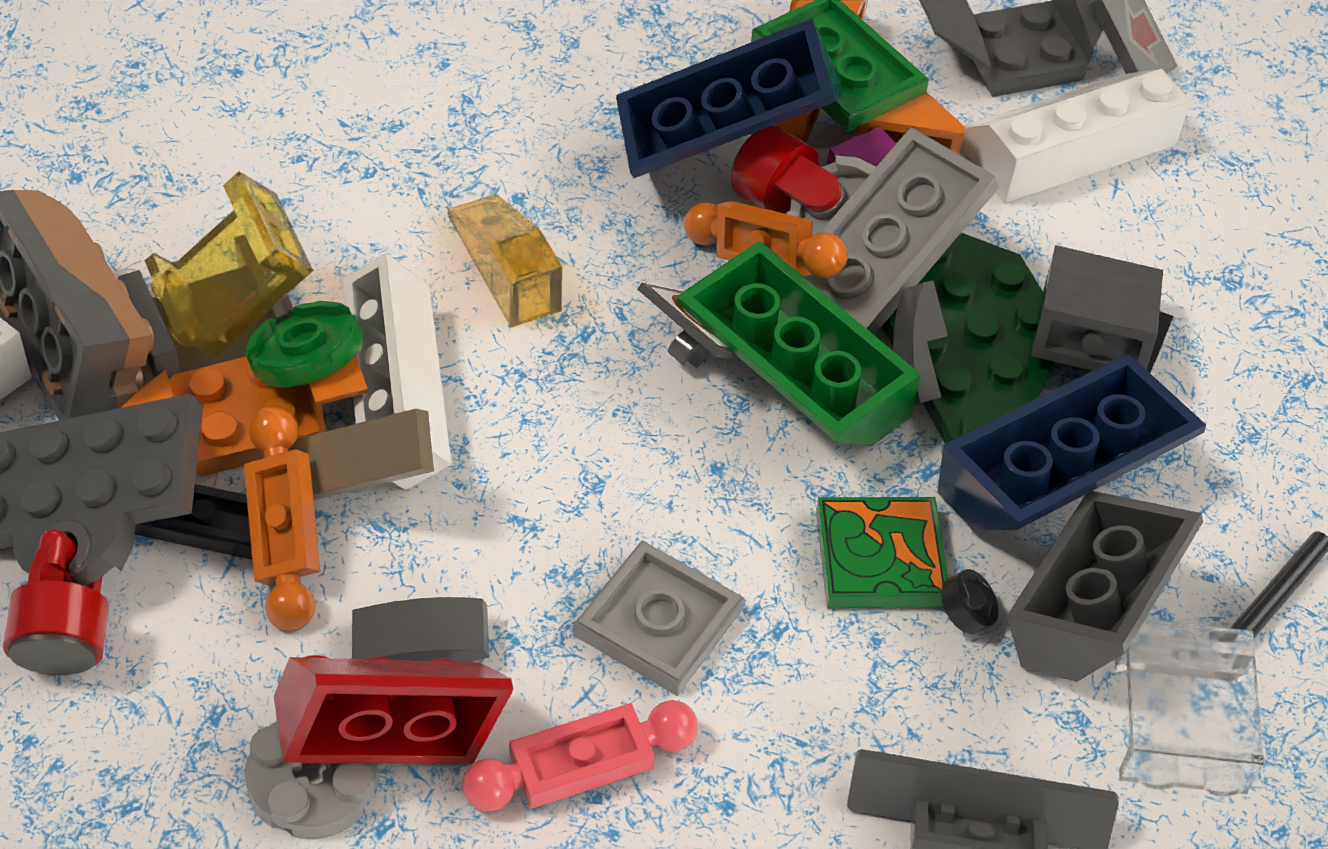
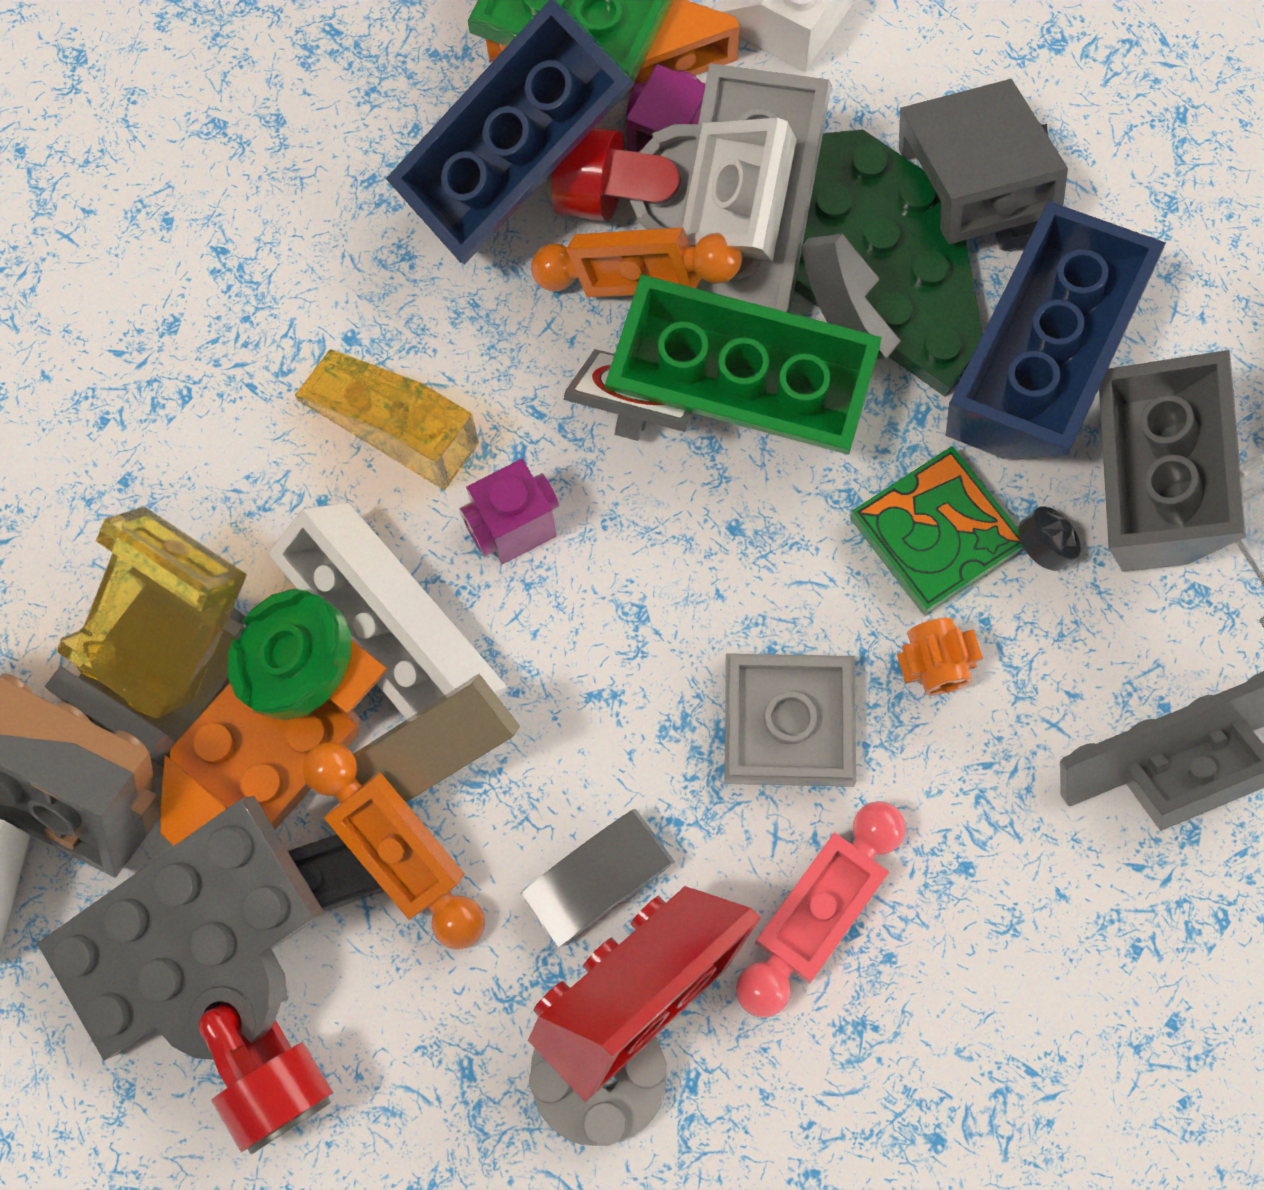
camera: 25 degrees left, 20 degrees up
(544, 354) = (510, 512): none -> magenta brick
(812, 629) = (939, 656): none -> orange gear
(885, 218) = (741, 184): none -> white slope

